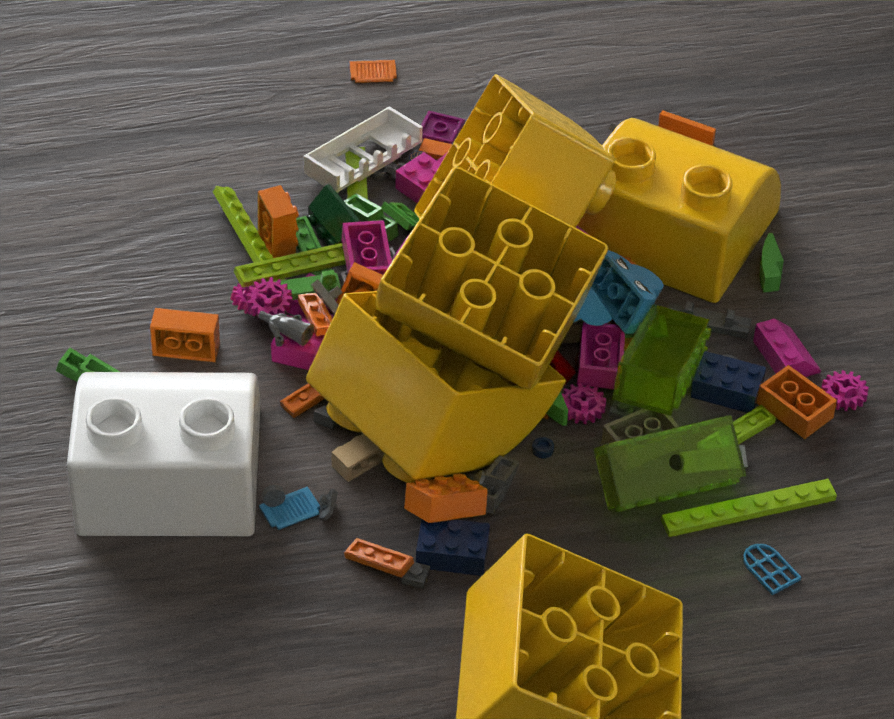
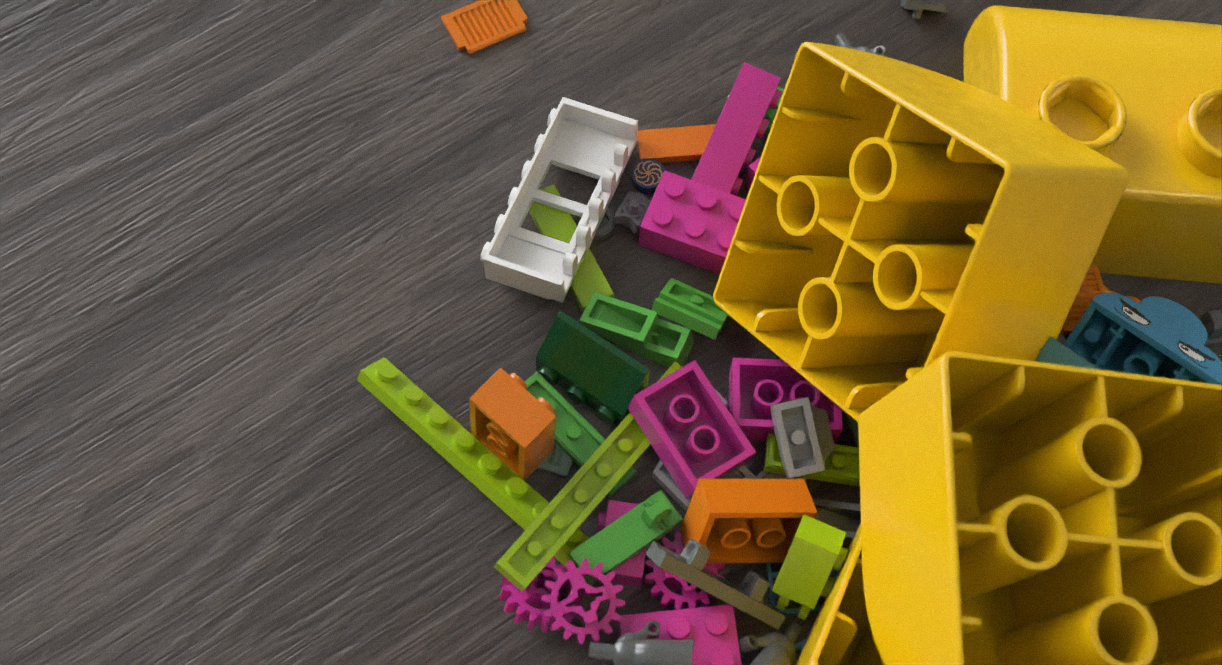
camera: 25 degrees left, 20 degrees up
(315, 312) = (678, 601): orange tile -> none
(441, 127) = (650, 97): magenta tile -> none

